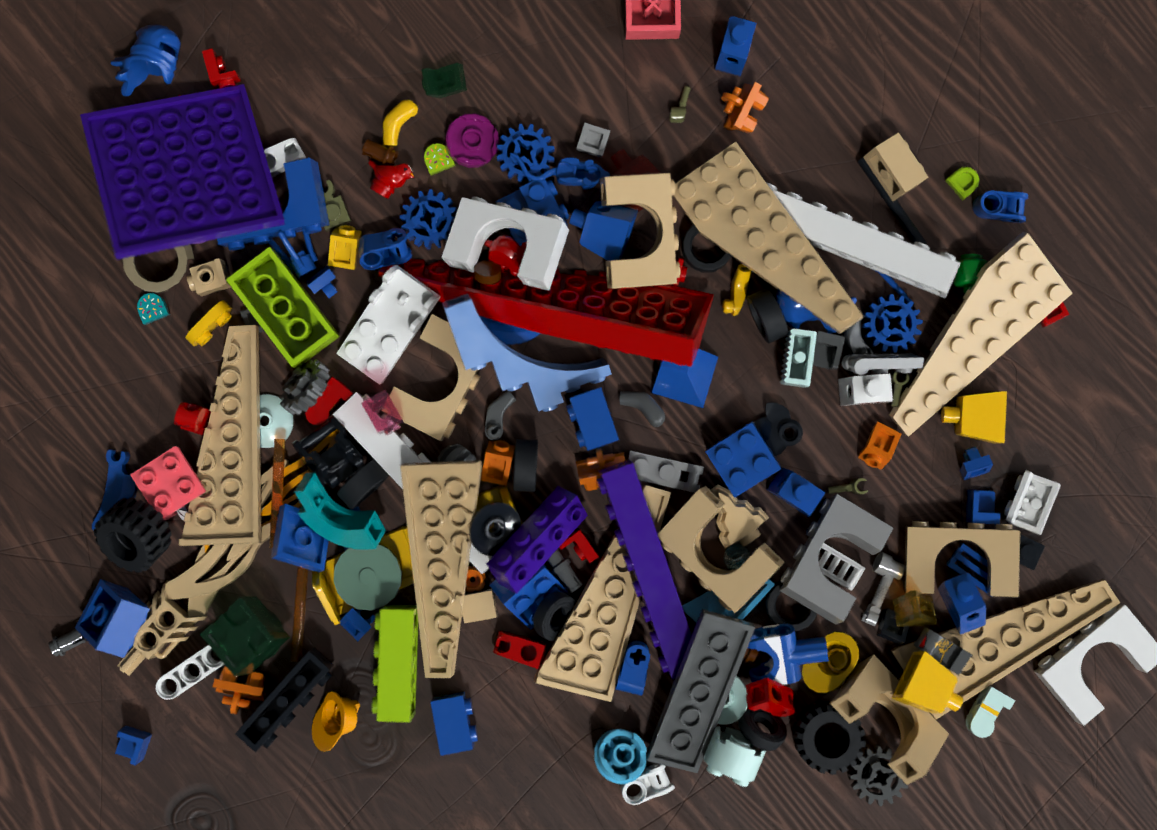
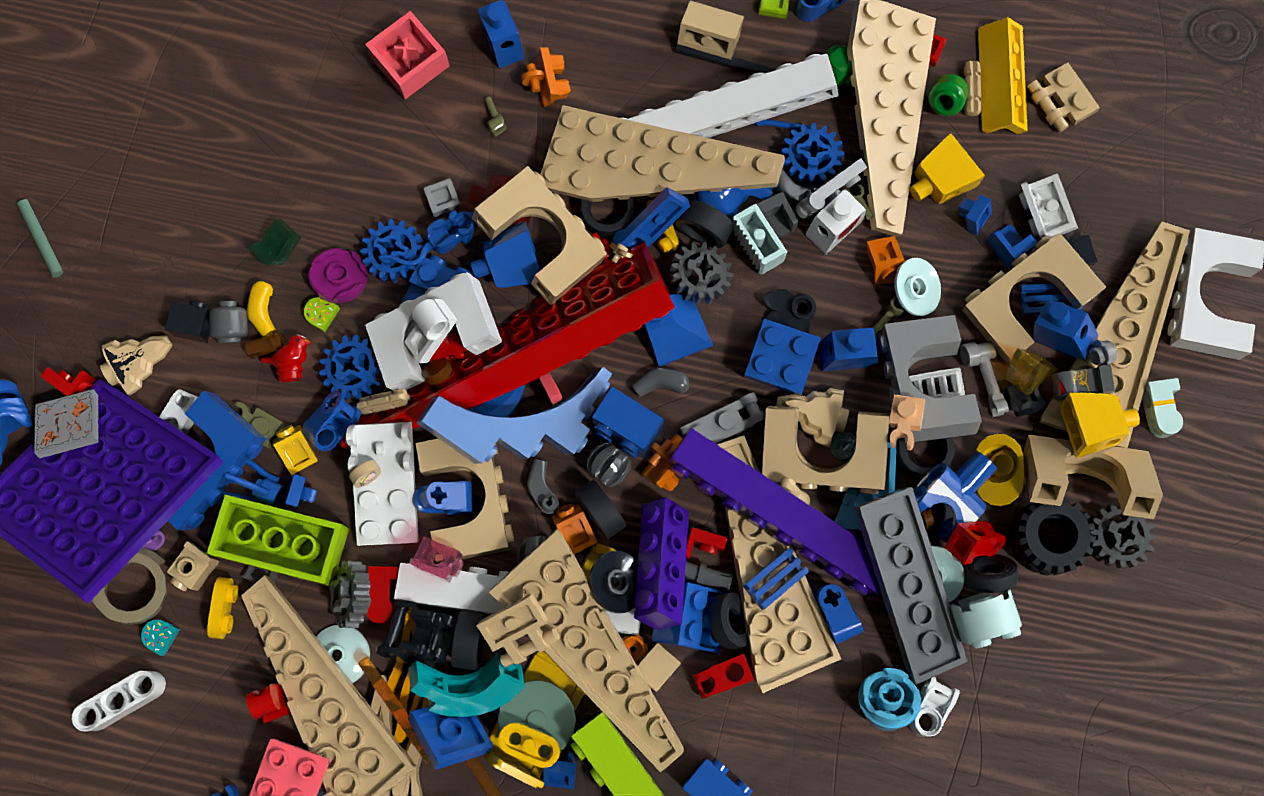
camera: 30 degrees left, 10 degrees down
(80, 328) = (104, 702): none -> white beam
(195, 104) = (66, 423): none -> light grey tile
(276, 89) = (133, 361): none -> tan rock
(340, 92) = (189, 321): none -> black brick
(347, 591) = (529, 746): none -> yellow plate
(365, 114) = (228, 322): none -> dark grey head
(378, 309) = (365, 473): none -> tan tile
(401, 501) = (514, 622): none -> tan plate
(424, 370) = (447, 498): none -> blue piece
(432, 264) = (383, 401): none -> tan axle
(507, 241) = (433, 324): none -> white plate
(557, 437) = (608, 464): none -> dark grey piece
(559, 351) = (550, 388): none -> coral tile
(632, 612) = (794, 563): none -> blue tile
(672, 562) = (790, 485): none -> tan piece
(688, 289) = (619, 251): none -> tan piece
(725, 348) = (695, 280): none -> dark grey gear
(730, 284) = (653, 220): none -> blue plate
(791, 575) = (906, 416): none -> light nougat plate
(885, 485) = (917, 287): none -> light aqua dish
(975, 641) = (1103, 353): none -> light grey plate
(1031, 359) = (948, 95): none -> green head
(1055, 367) = (973, 81): none -> tan axle
(1085, 376) = (1002, 76): none -> yellow panel
(1125, 428) = (1069, 94): none -> tan plate

